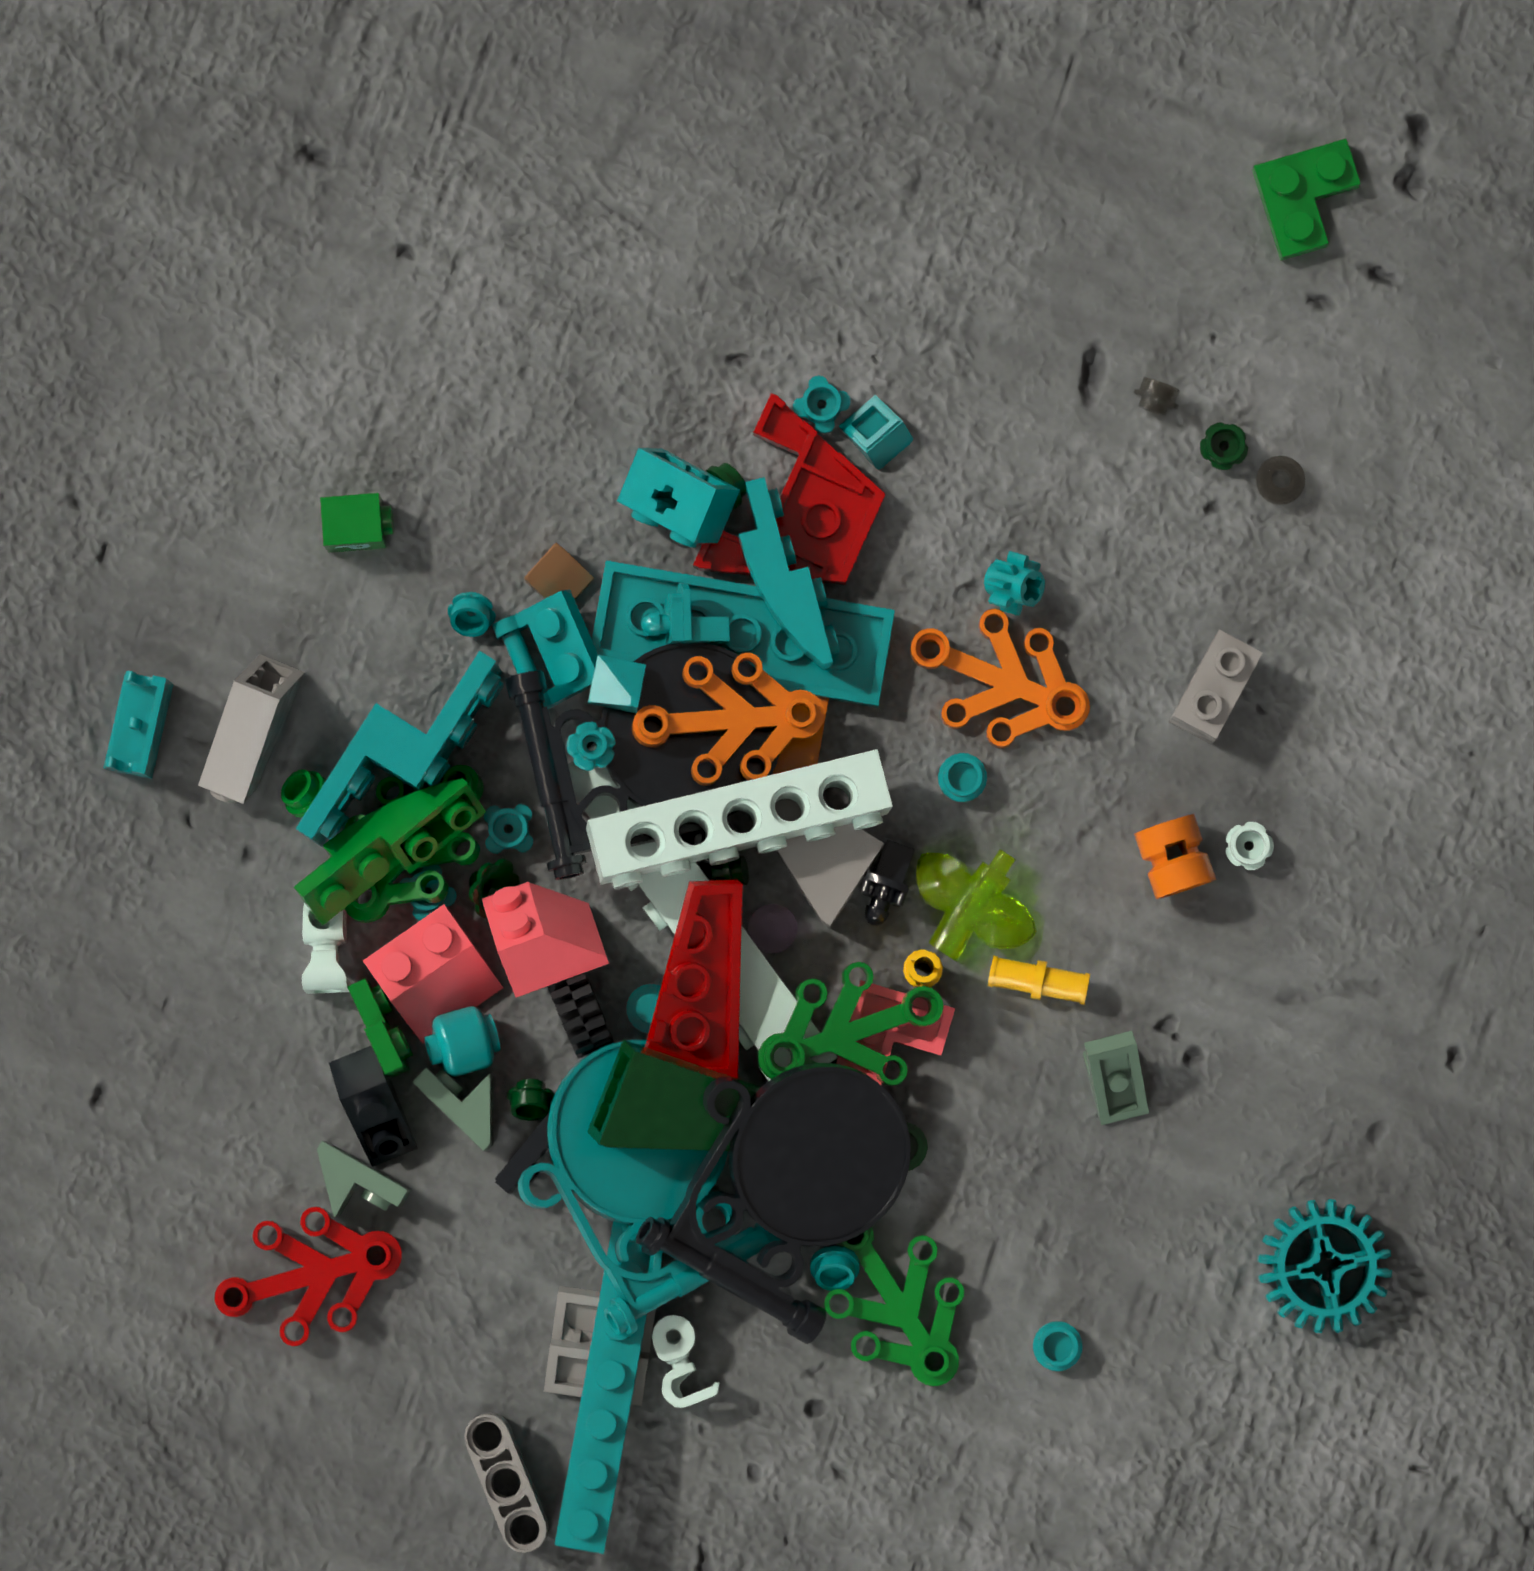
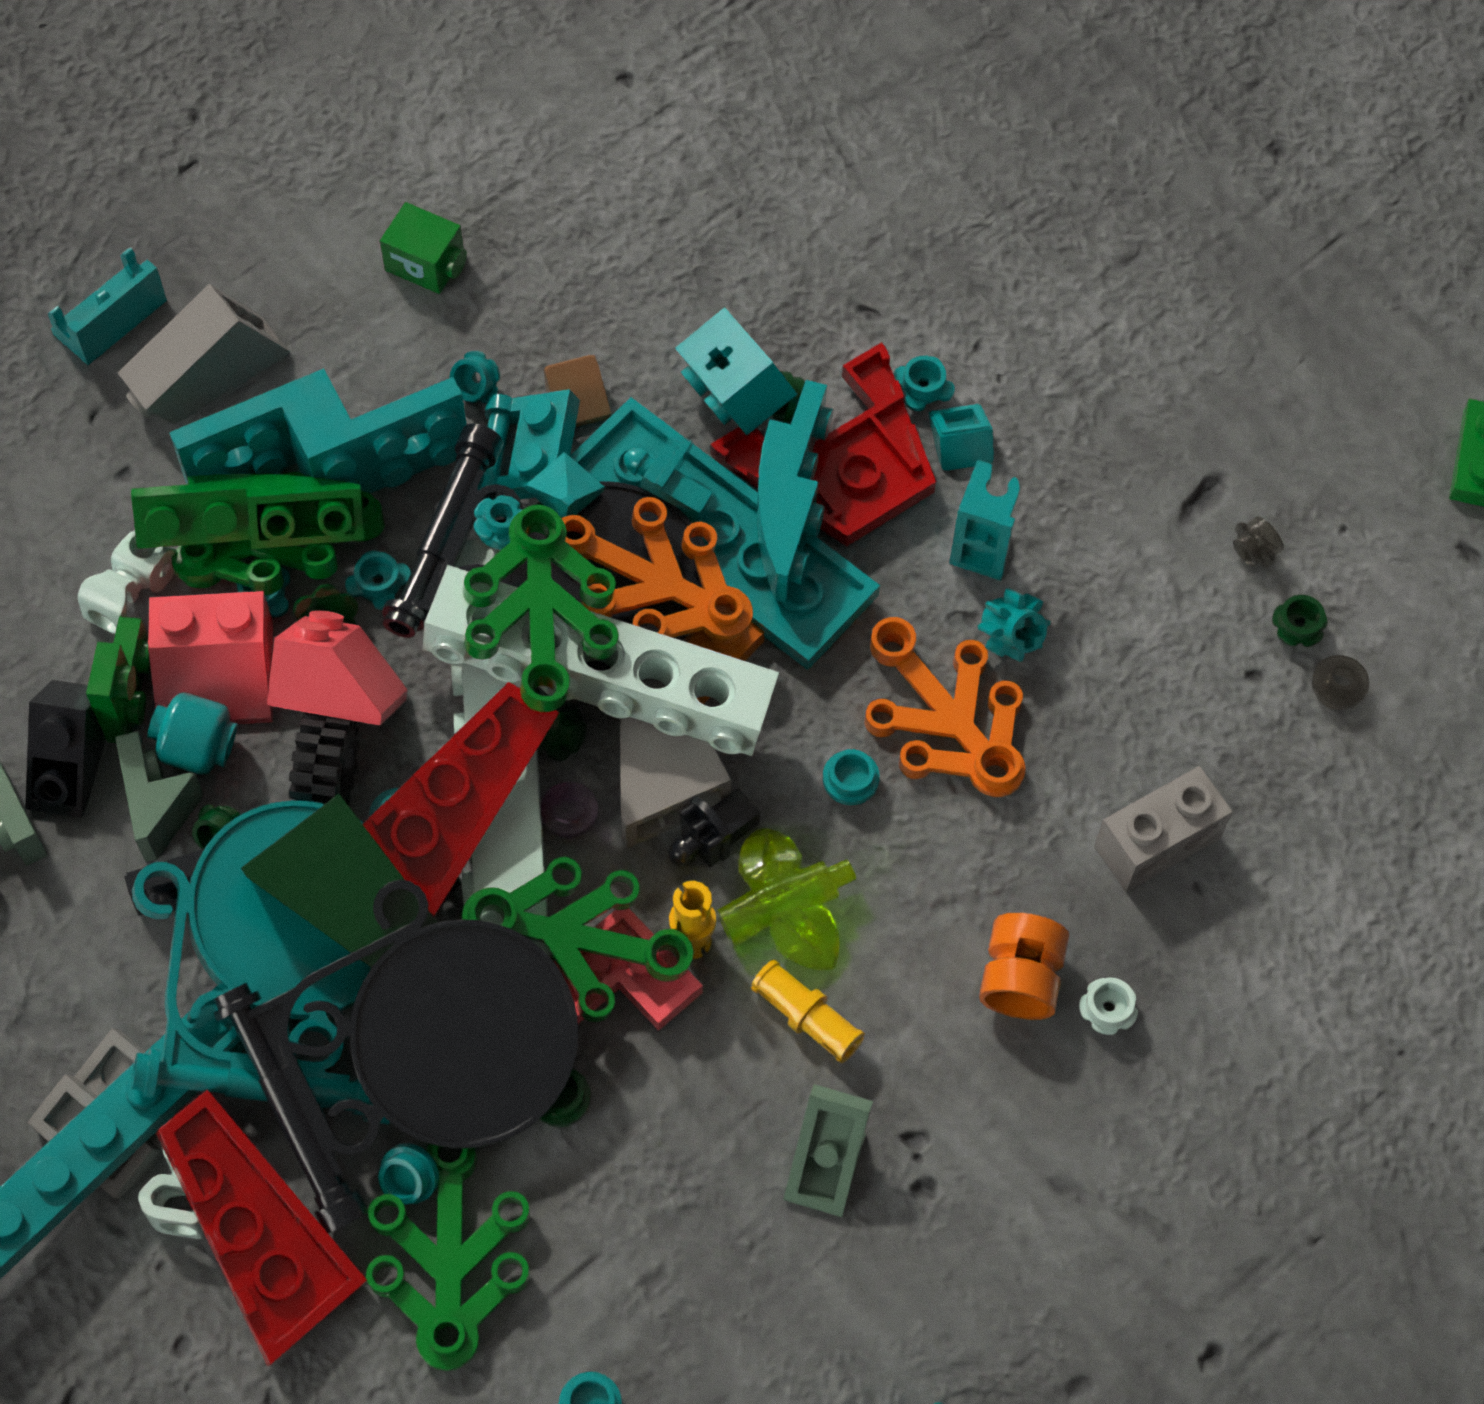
camera: 25 degrees right, 20 degrees down
(676, 807) = (540, 598): none -> green plant
(768, 1373) = (262, 1235): none -> red wing
(948, 522) = (984, 525): none -> teal hinge

